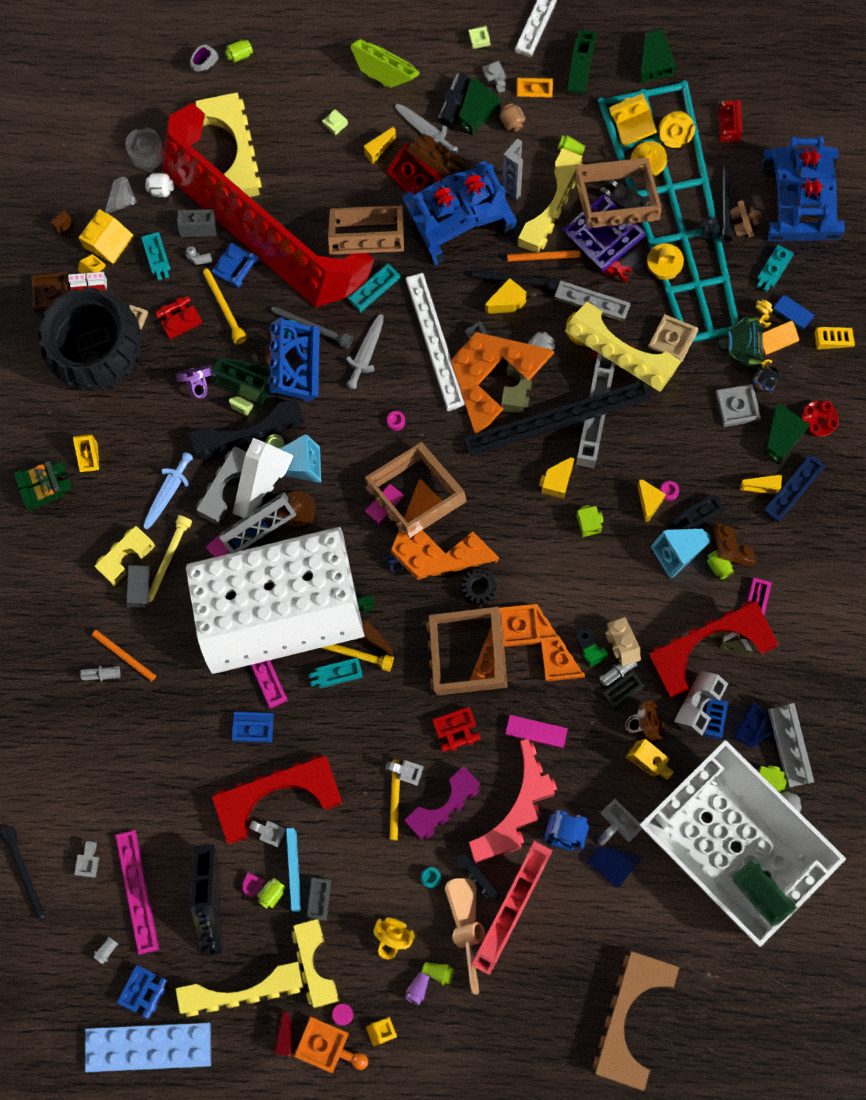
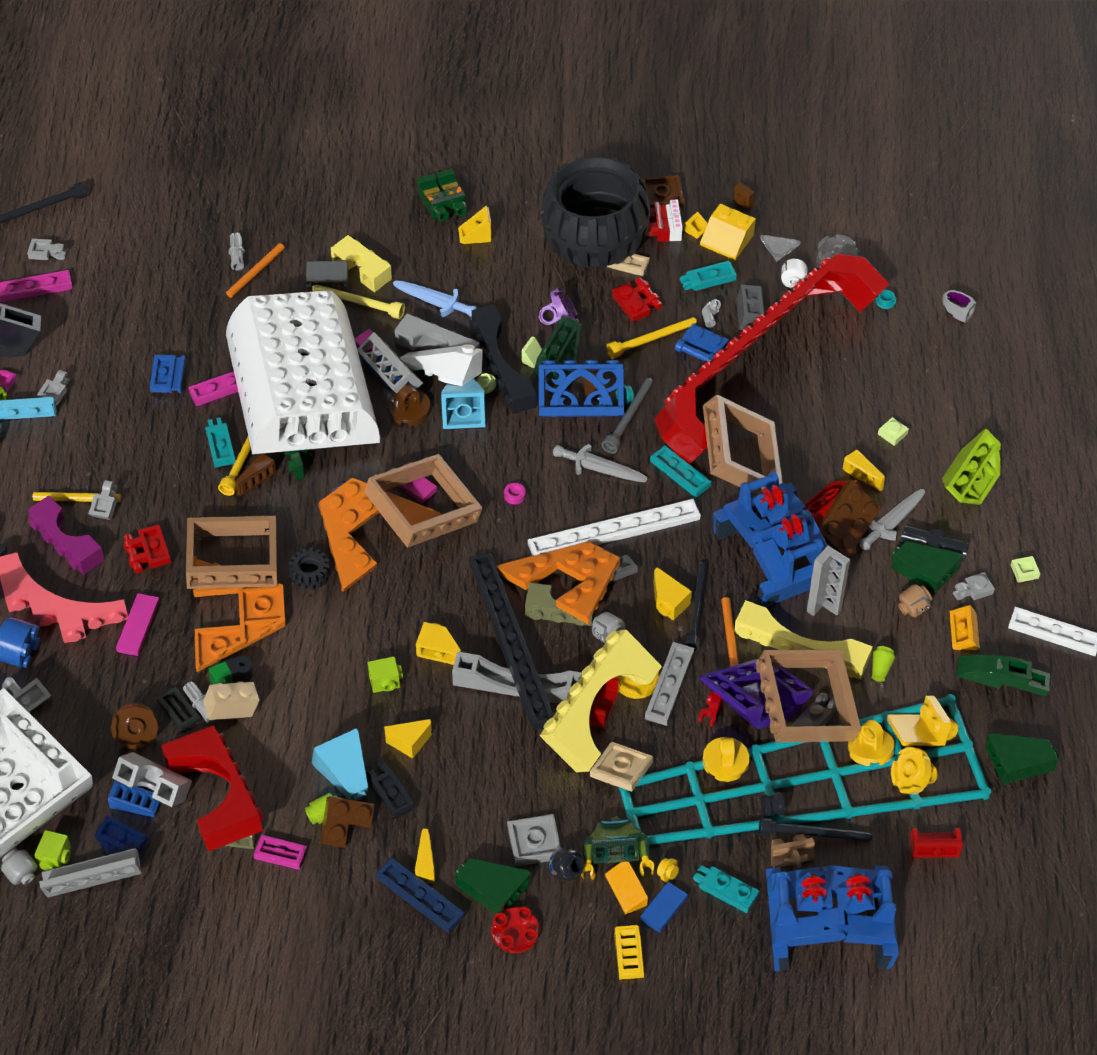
camera: 85 degrees right, 20 degrees down
(227, 114) = (812, 346): light yellow arch -> none
(236, 804) = (106, 423): red arch -> none
(238, 50) = (975, 338): lime brick -> none
(644, 753) = (89, 724): yellow torso -> none
(670, 489) = (422, 762): dark pink tile -> none

